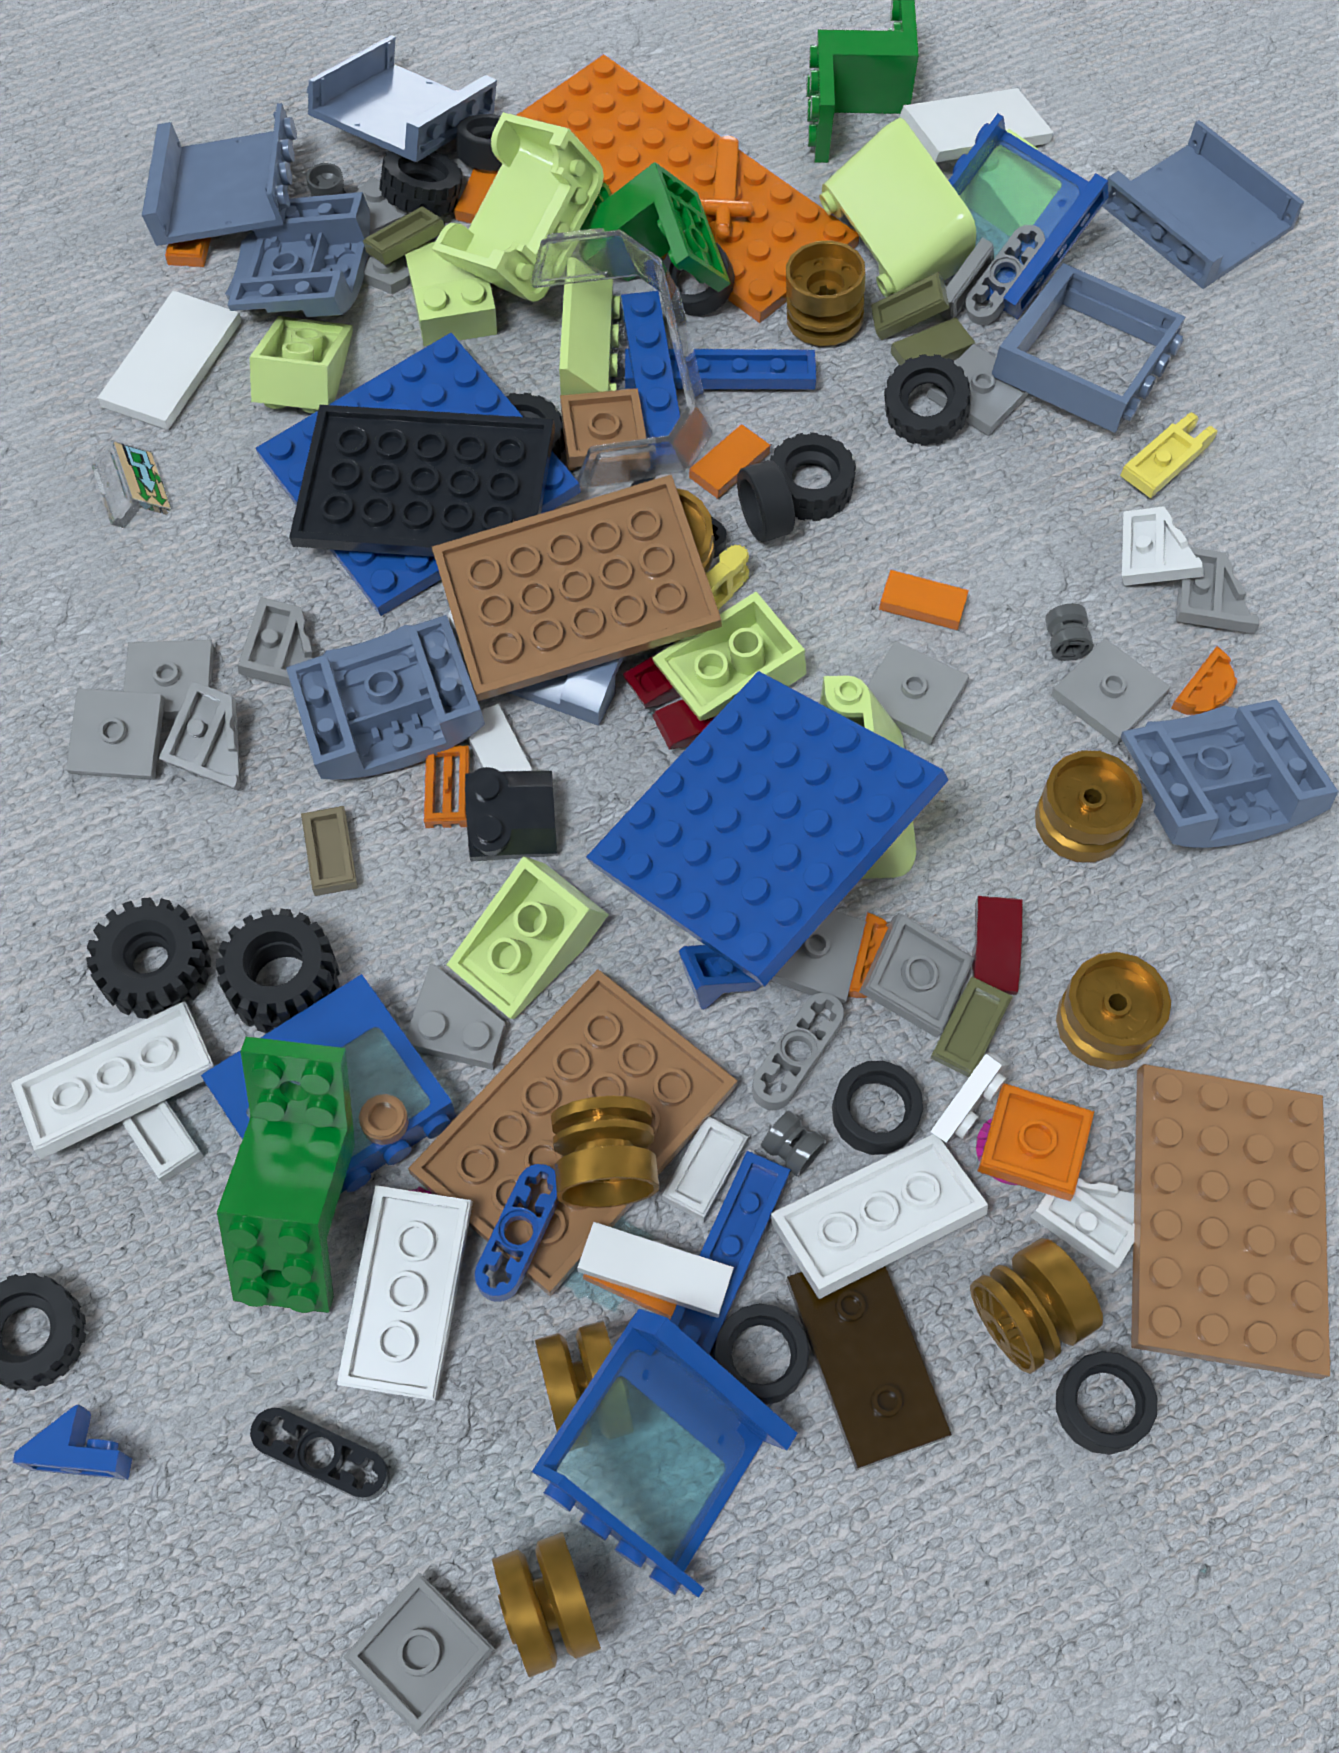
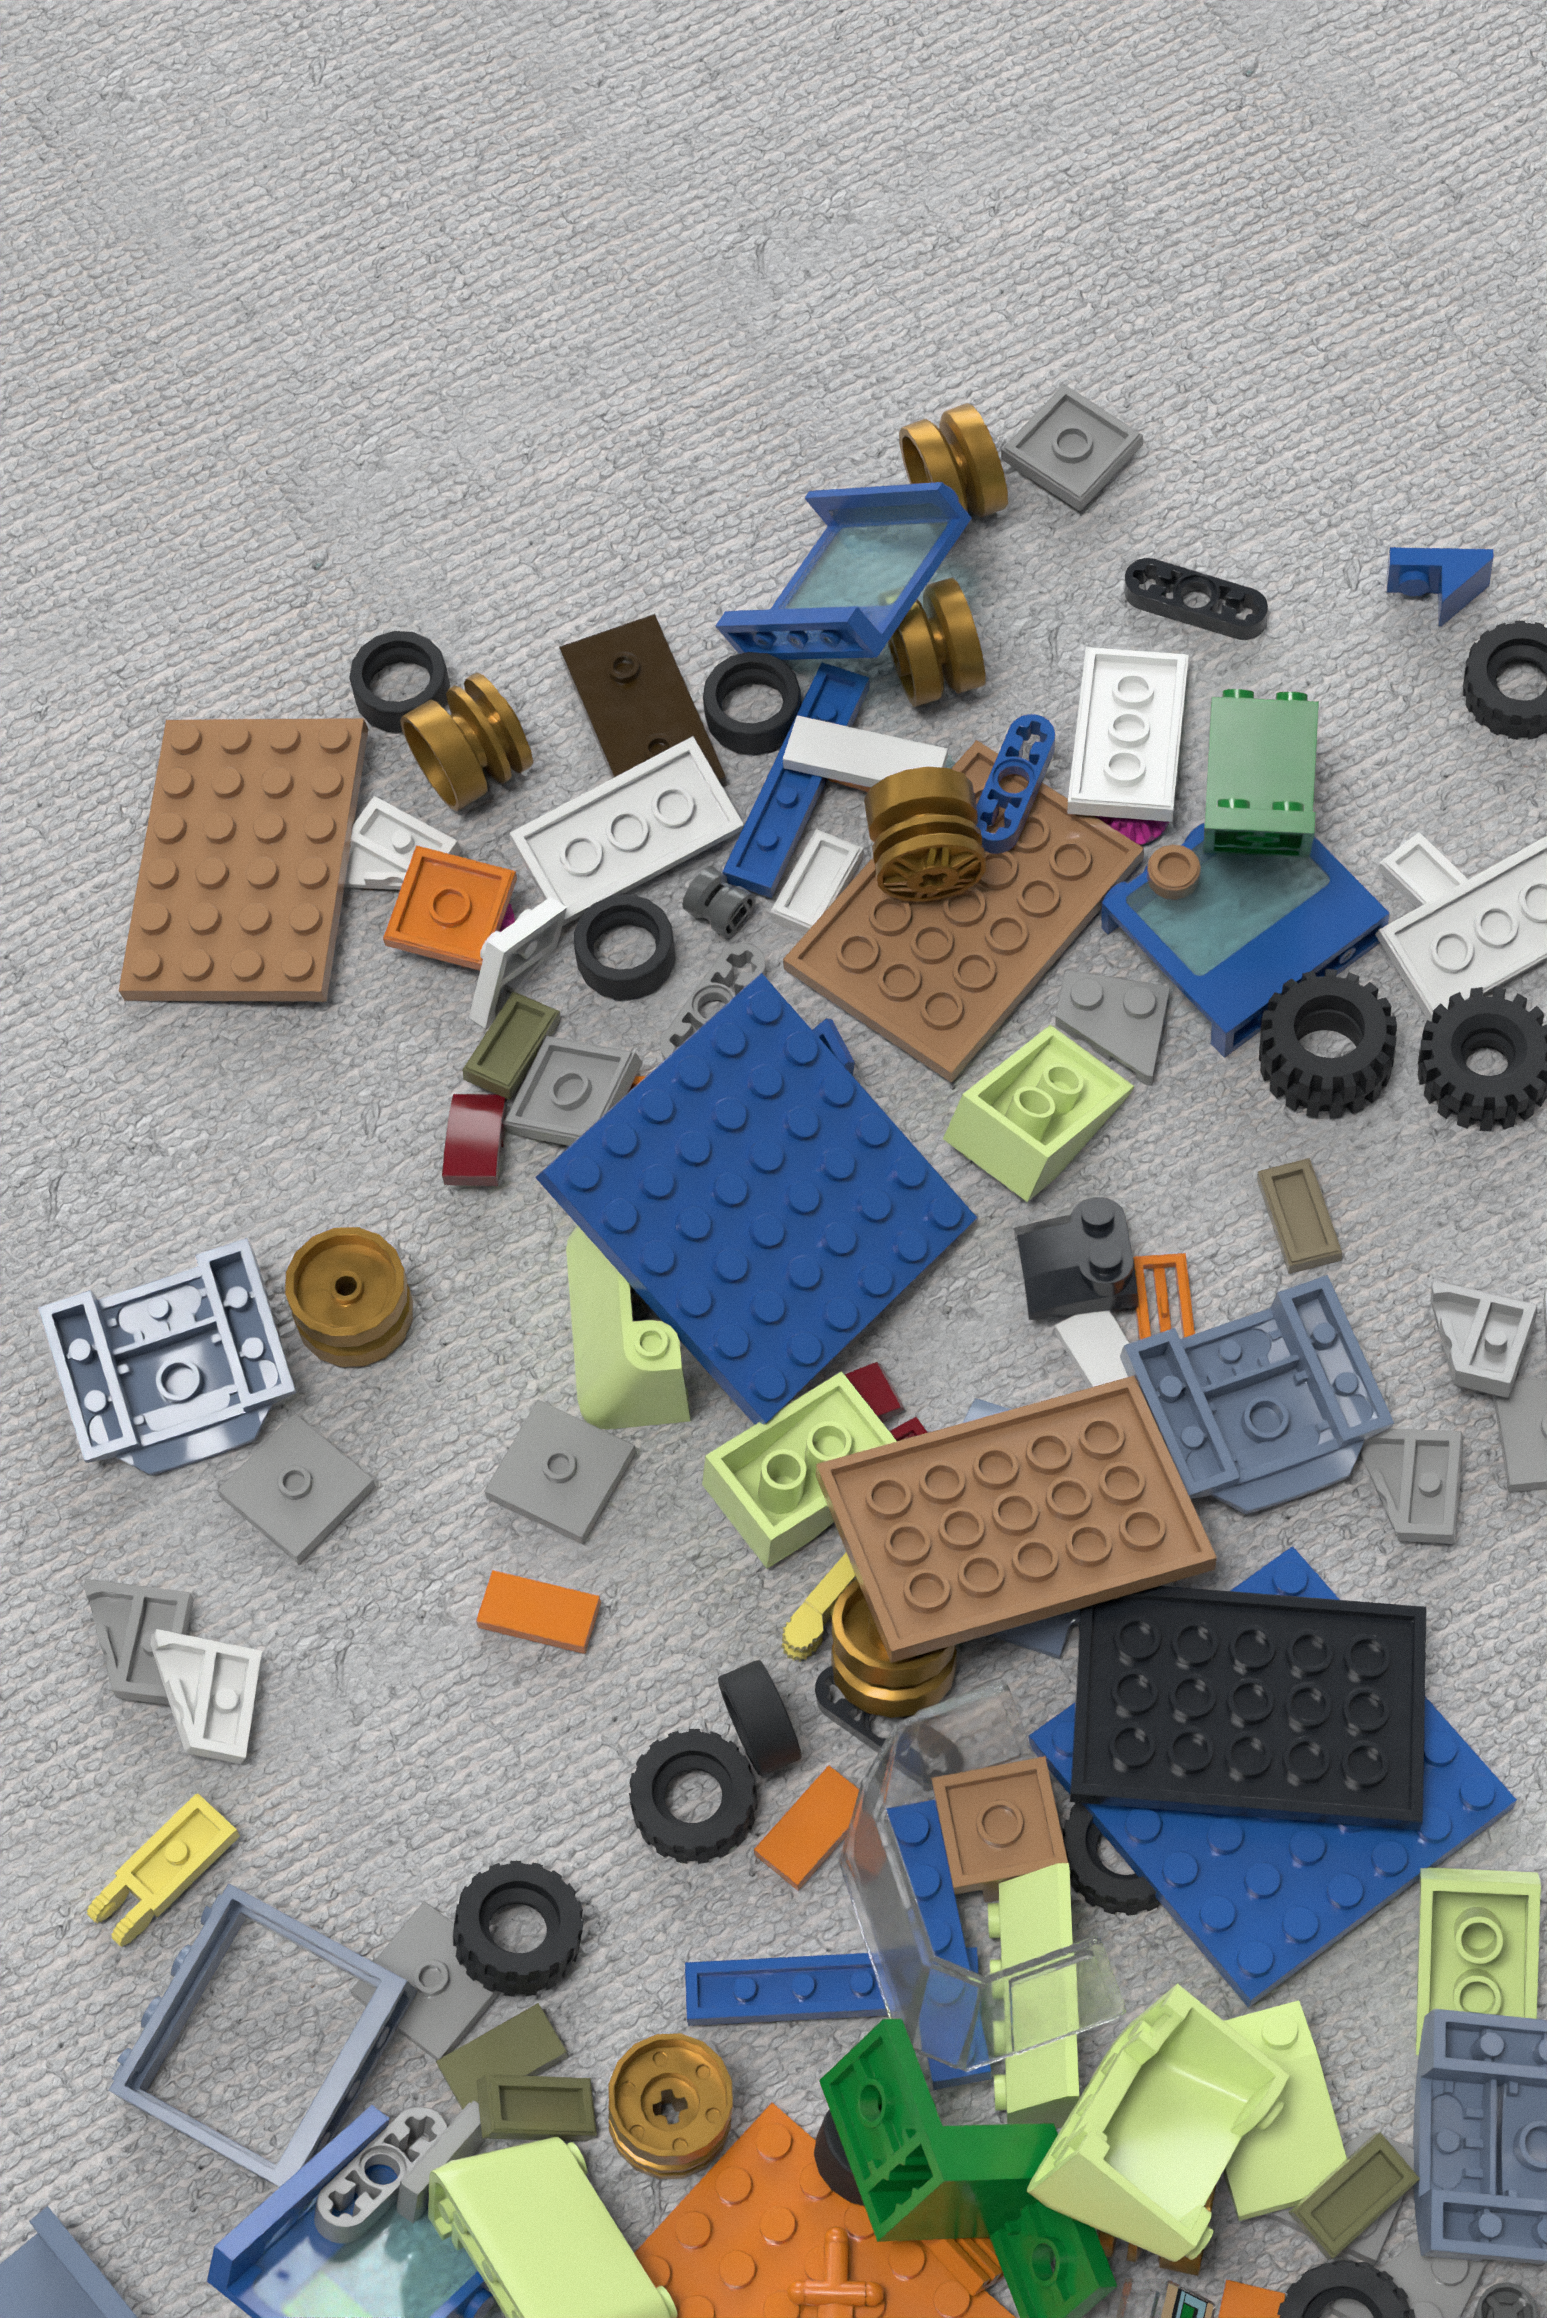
camera: 175 degrees left, 0 degrees up
(1069, 632) = (344, 1557): dark grey wheel -> none
(1113, 1010) = (348, 1051): pearl gold wheel -> none
(1209, 687) = (163, 1504): orange tile -> none

